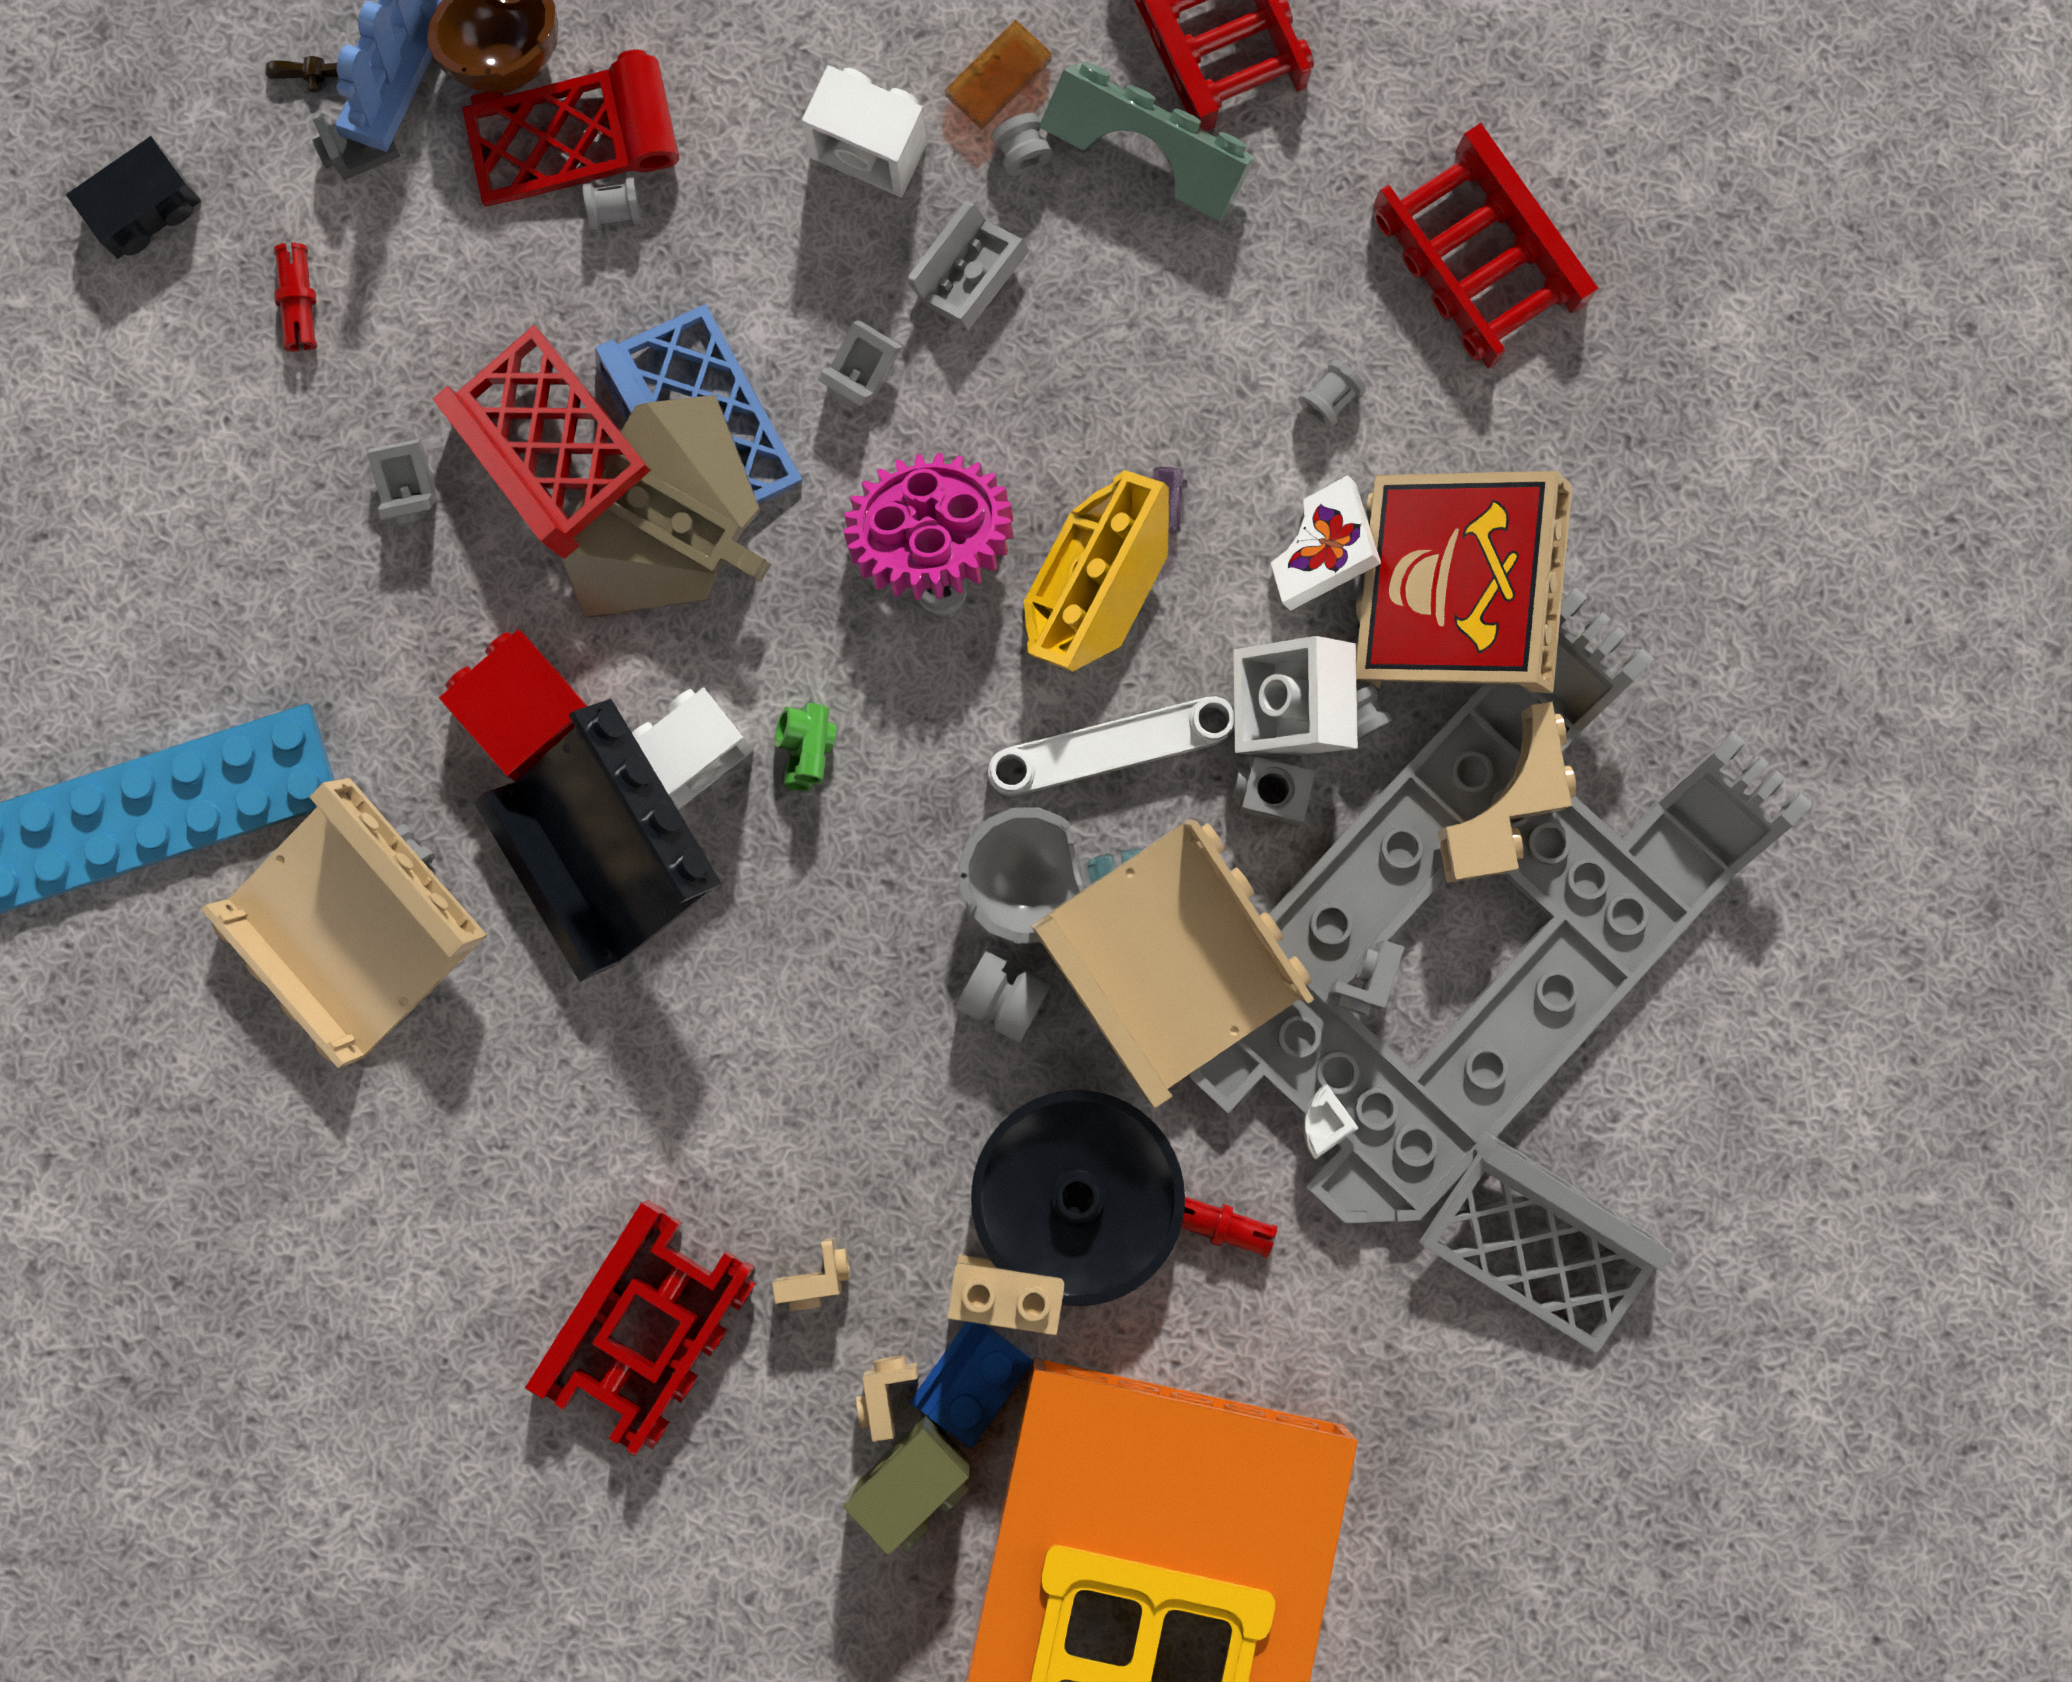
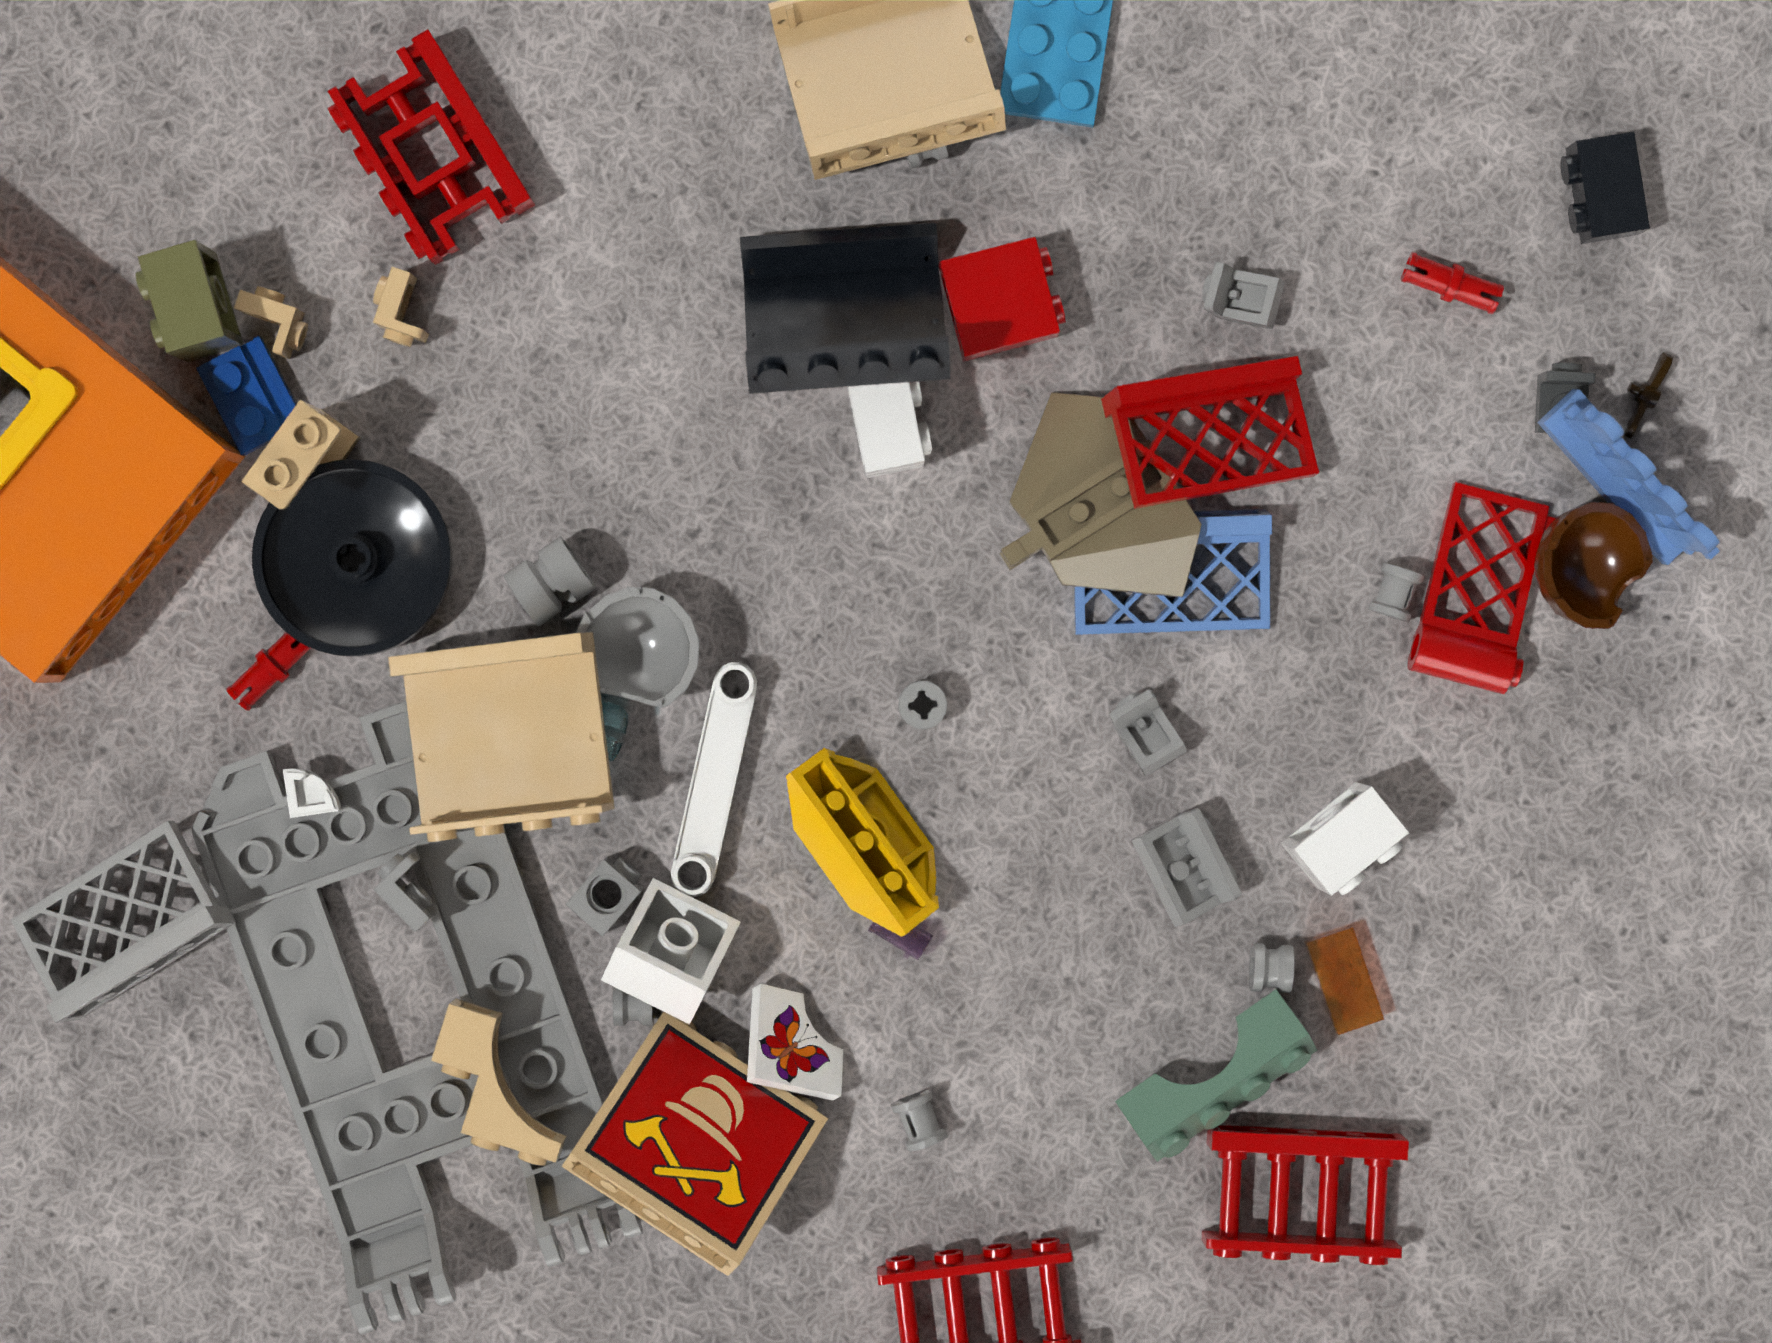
camera: 120 degrees right, 5 degrees up
(808, 737) = (850, 528): bright green plate -> none
(928, 526) = (961, 682): dark pink gear -> none

